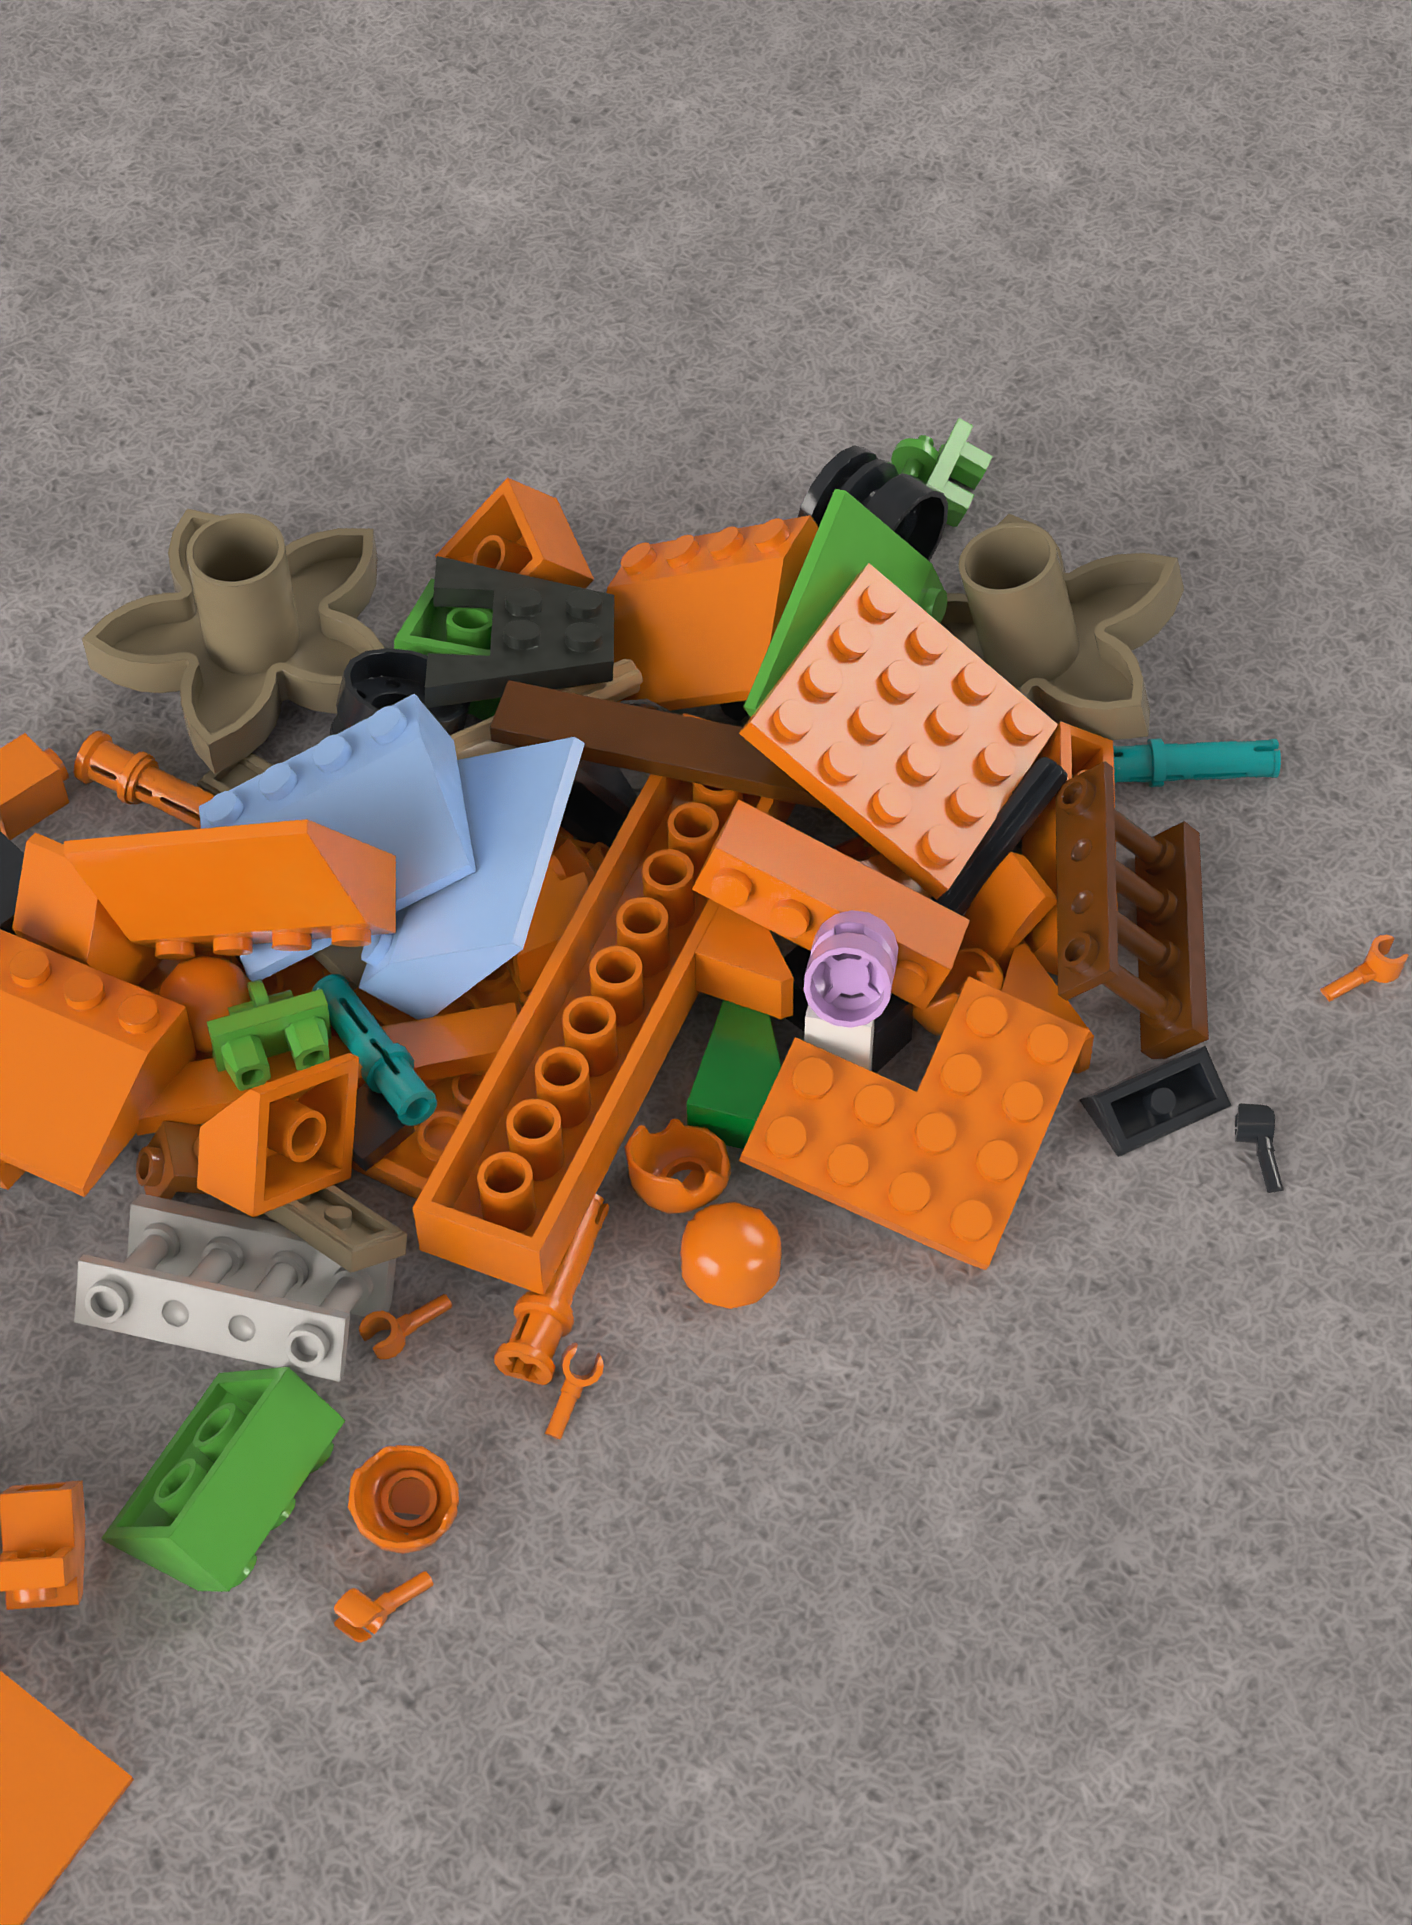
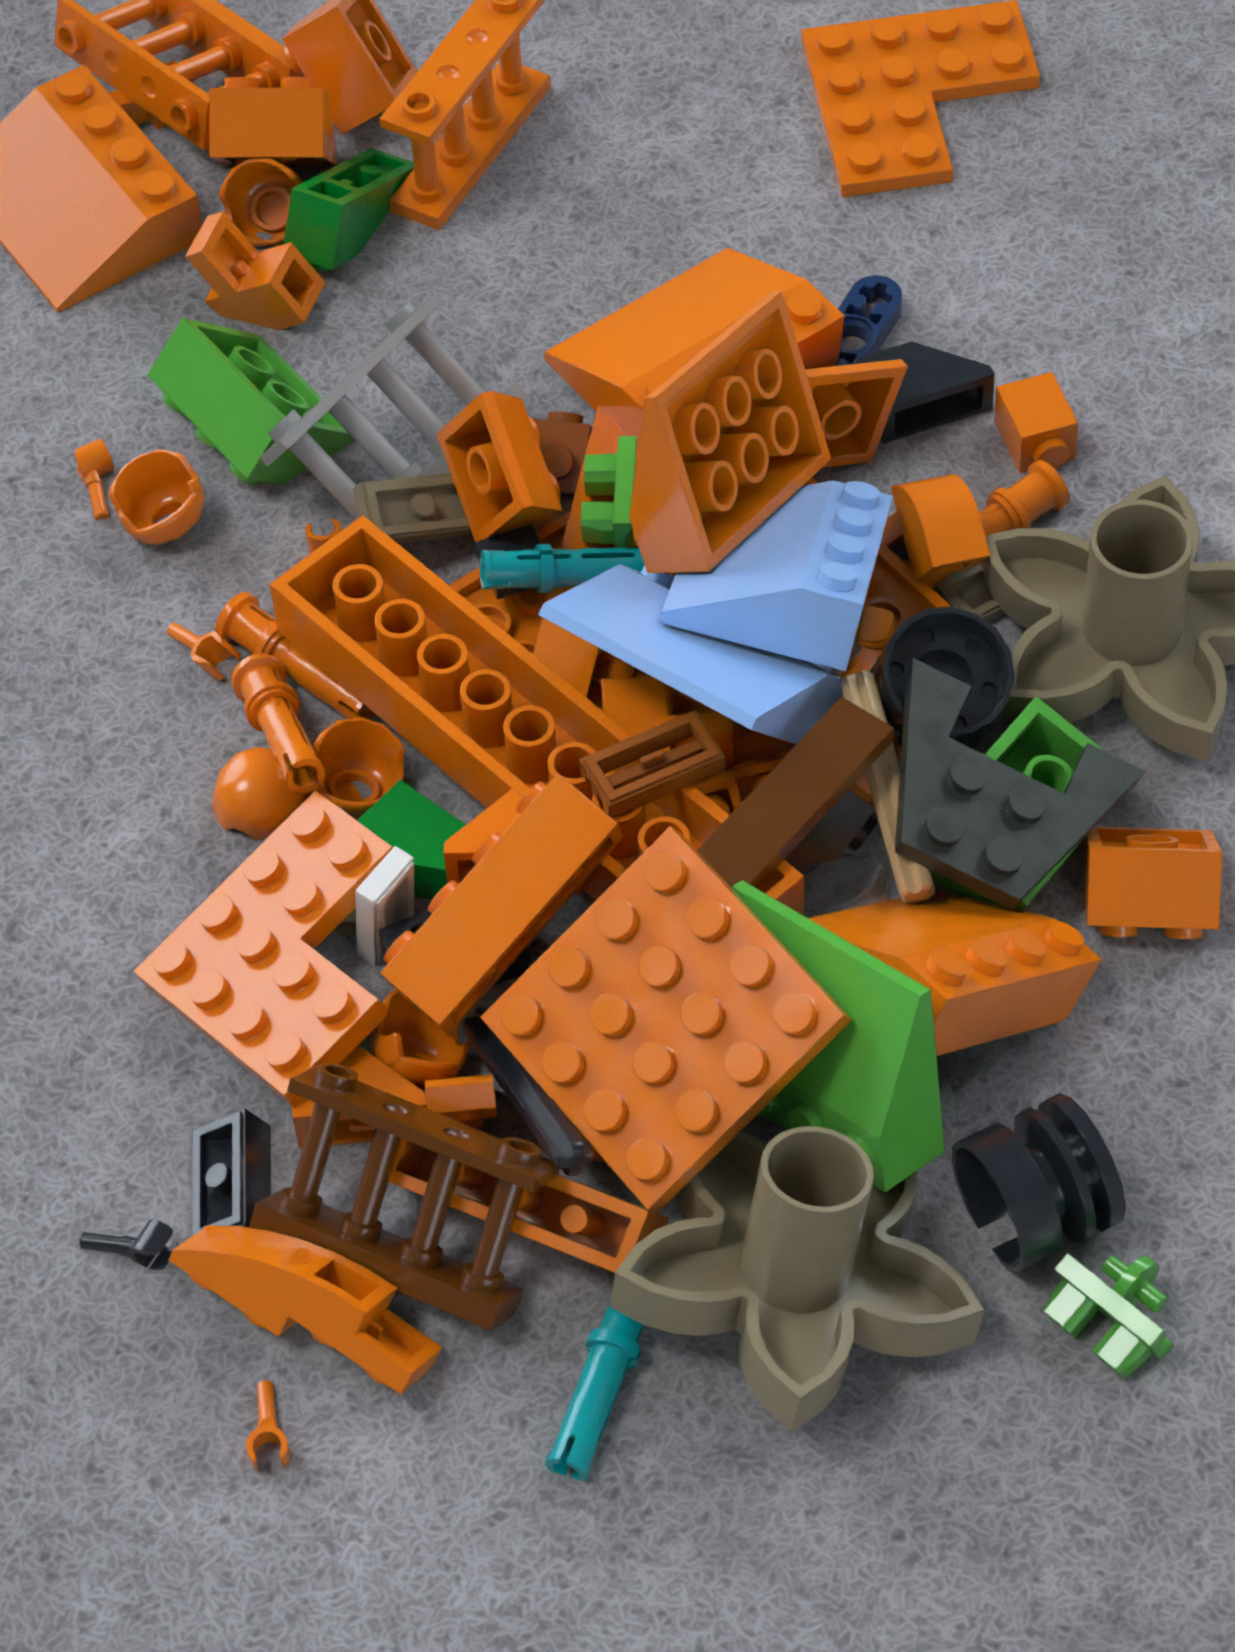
camera: 115 degrees right, 0 degrees up
(195, 774) = (937, 525): none -> orange brick
(614, 854) = (658, 771): none -> dark orange tile
(639, 1262) = (274, 709): none -> orange pin
(851, 969) = (400, 868): lavender wheel -> none
(1243, 977) = (292, 1281): none -> orange slope

